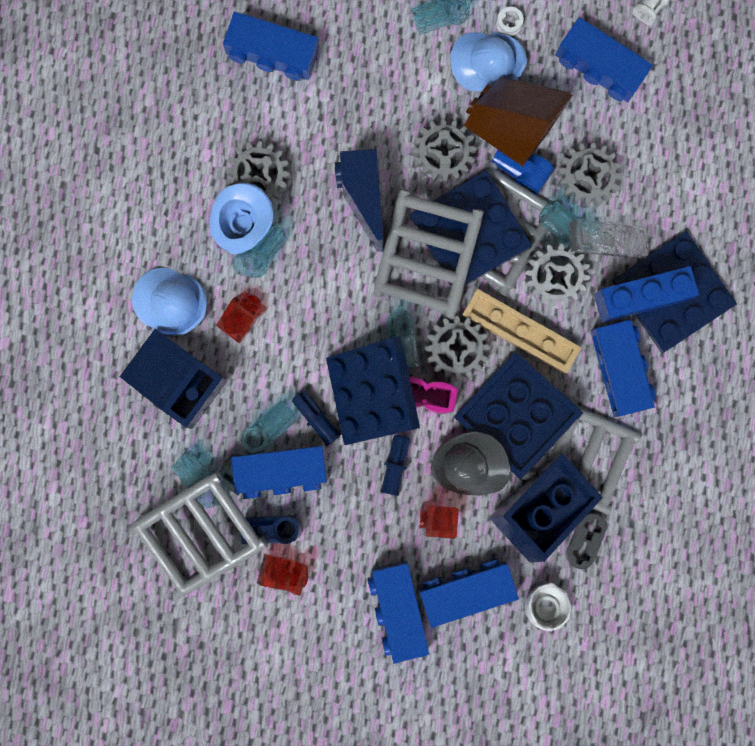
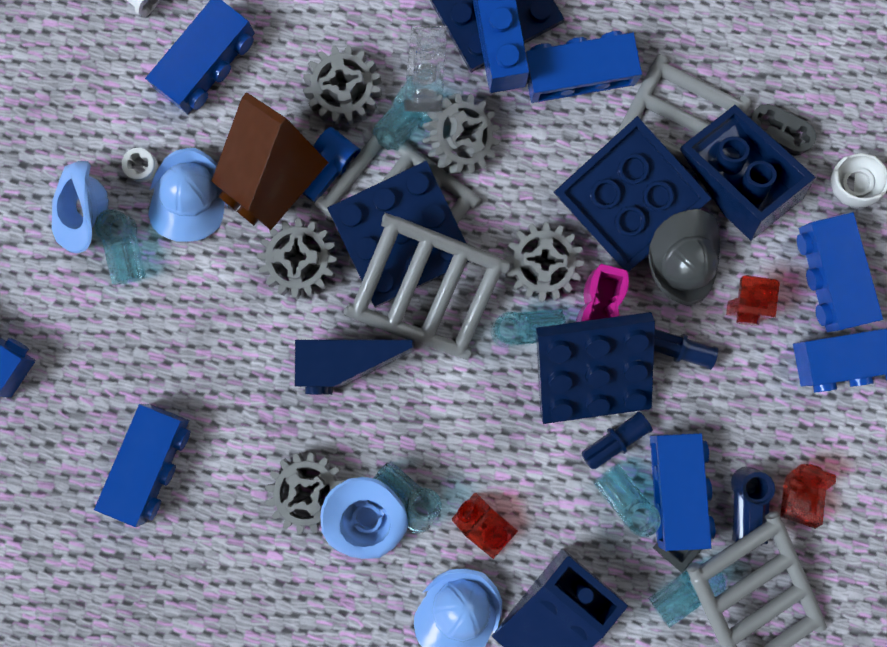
camera: 85 degrees left, 0 degrees up
(521, 331) = (527, 183): tan plate -> none

